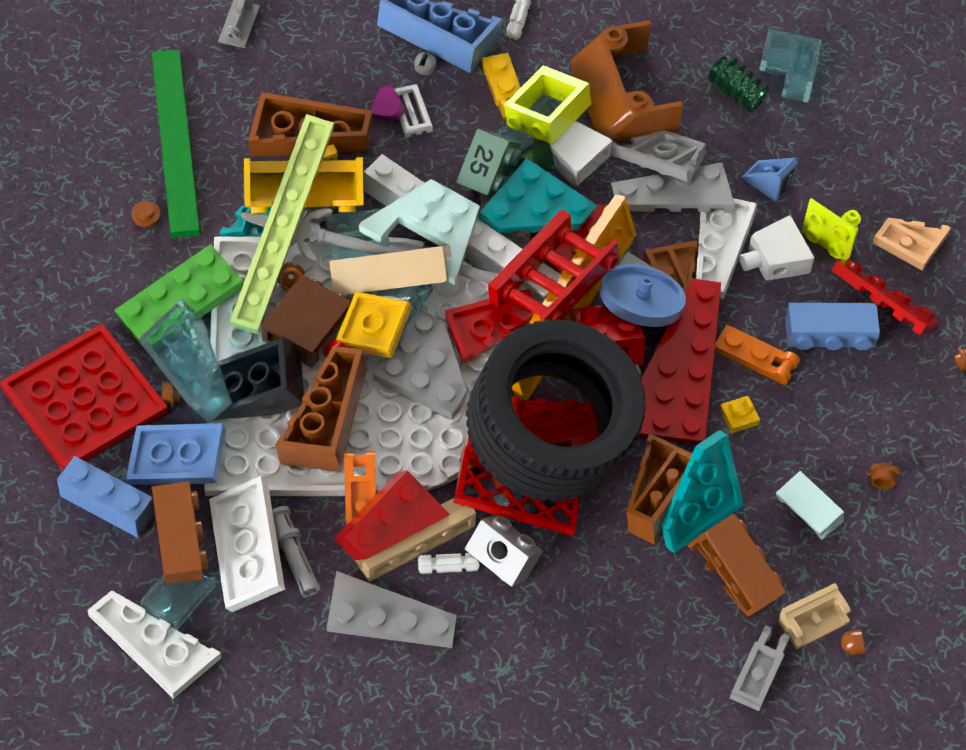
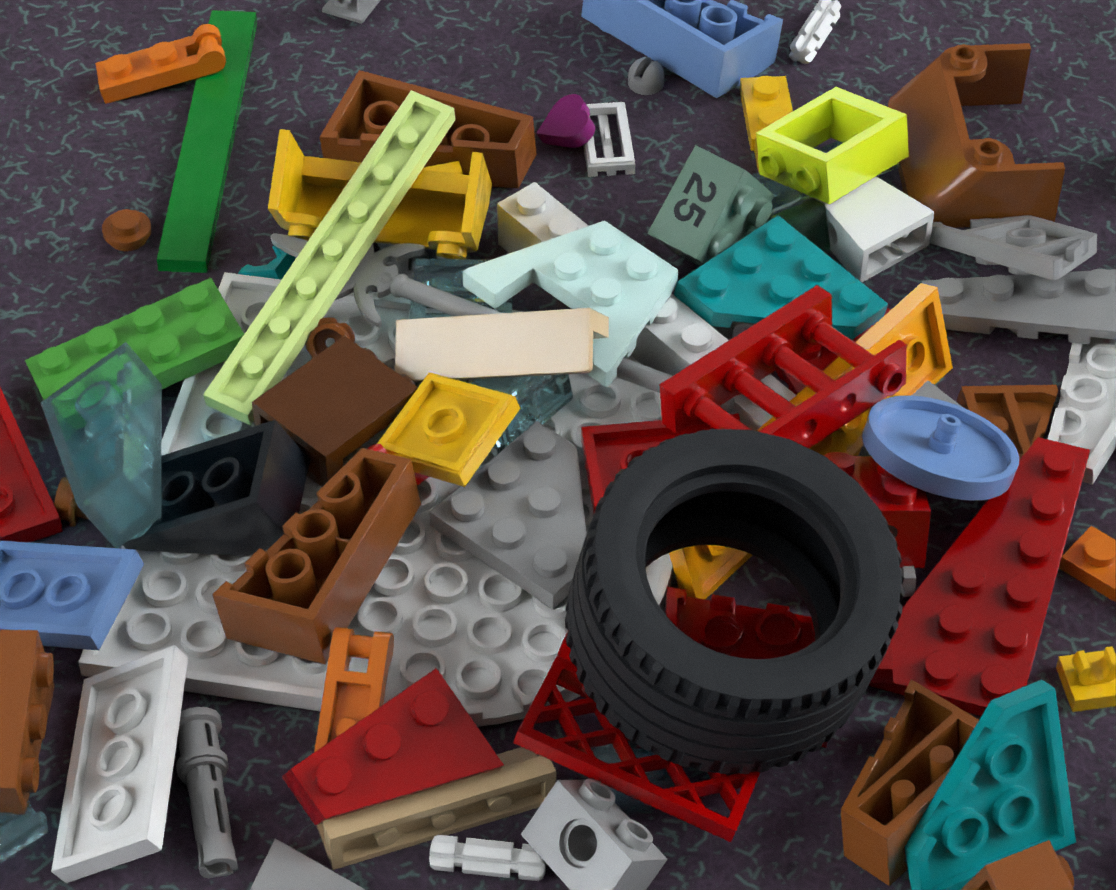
camera: 15 degrees right, 10 degrees down
(133, 97) = (161, 65): none -> orange plate

